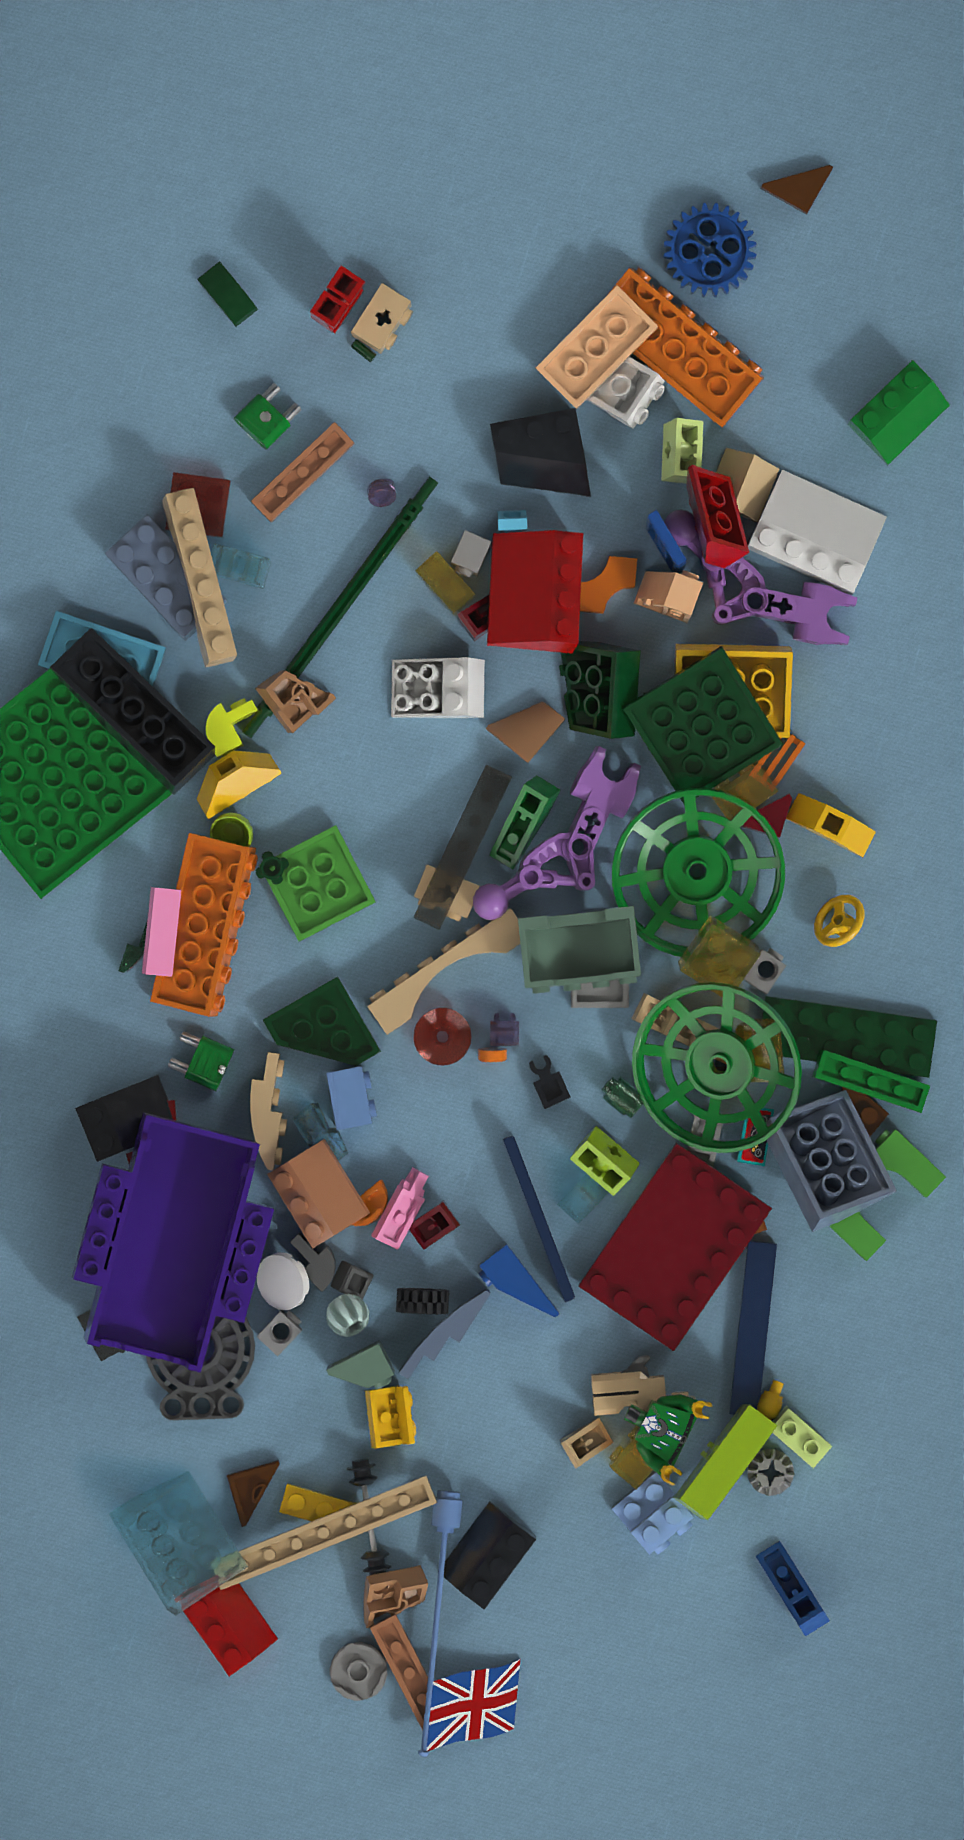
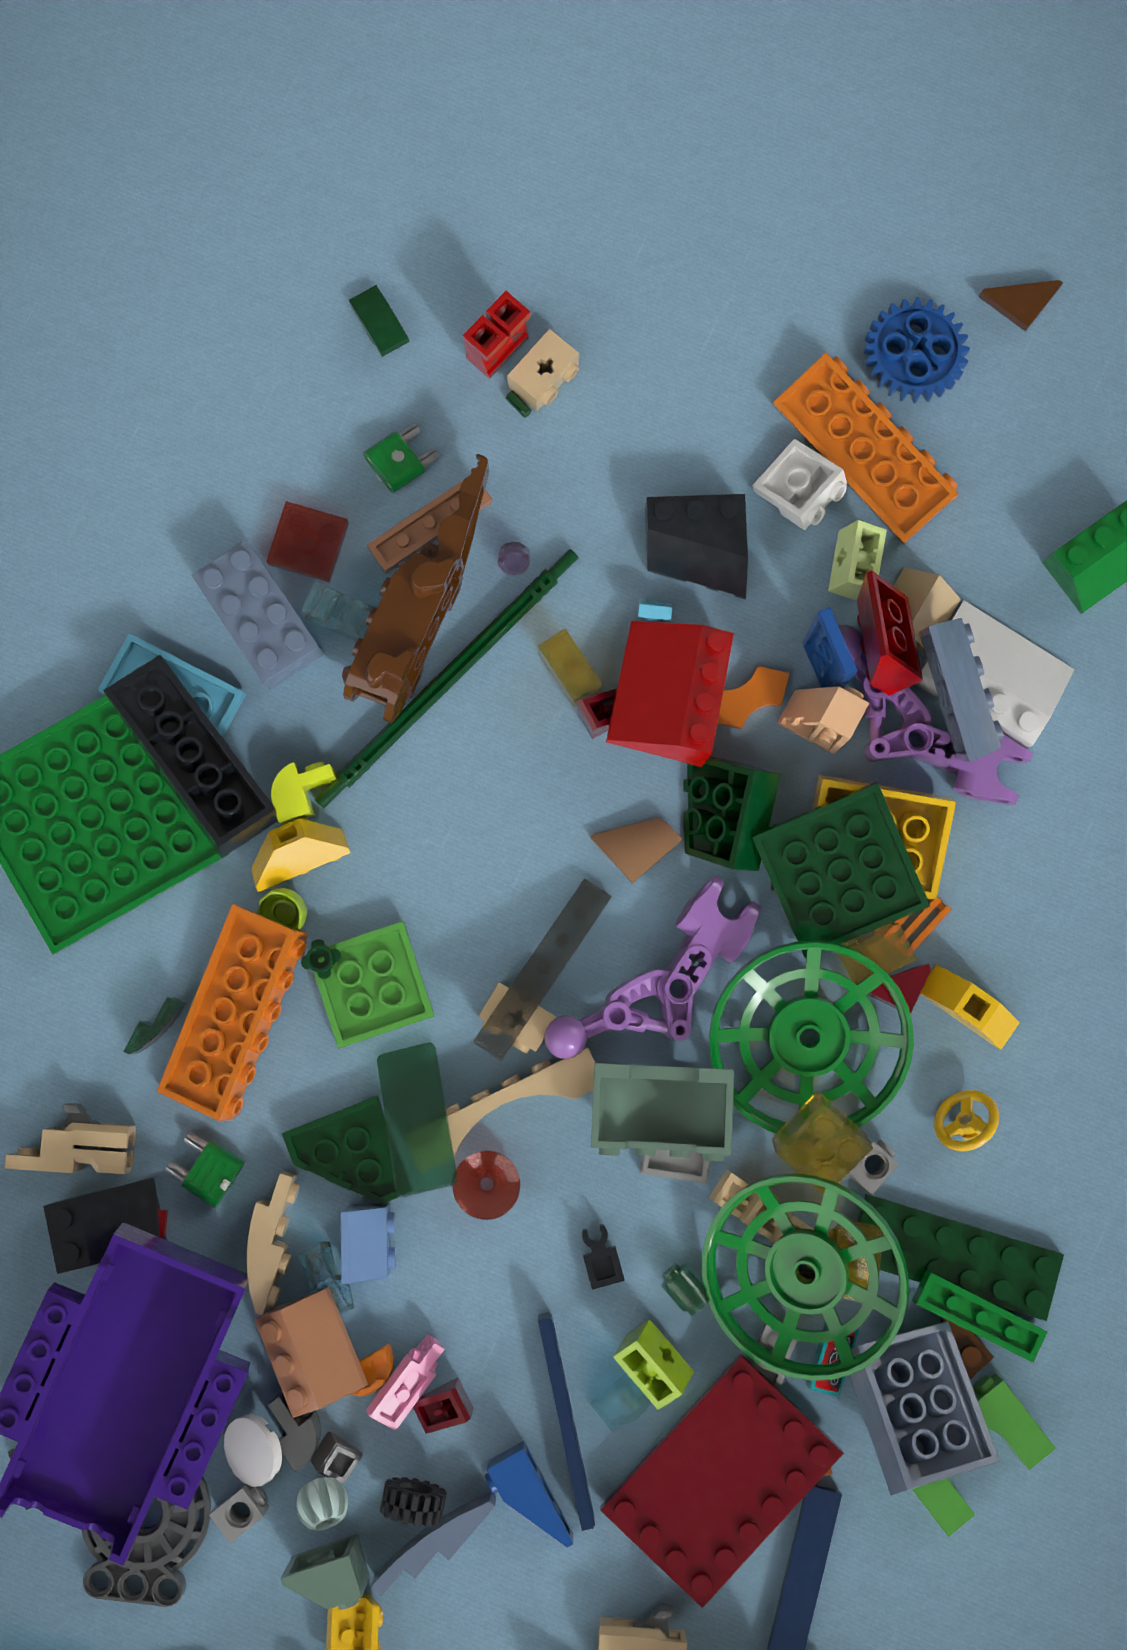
camera: 10 degrees right, 5 degrees down
(93, 1053) = (79, 1142): none -> tan plate
(161, 931) = (180, 1014): bright pink tile -> none
(202, 582) = (292, 617): tan arch -> none
(293, 699) = (377, 771): medium nougat slope -> none
(304, 554) = (414, 606): none -> reddish brown animal
(375, 989) = (416, 1120): none -> clear green piece
(438, 688) = (543, 783): white slope -> none
(470, 554) = (602, 639): light grey brick -> none
(492, 1054) = (541, 1214): orange tile -> none
(504, 1032) = (559, 1191): clear purple tile -> none
(524, 821) = (618, 949): green slope -> none
(597, 347) = (778, 432): light nougat plate -> none
(781, 557) = (960, 689): none -> sand blue slope

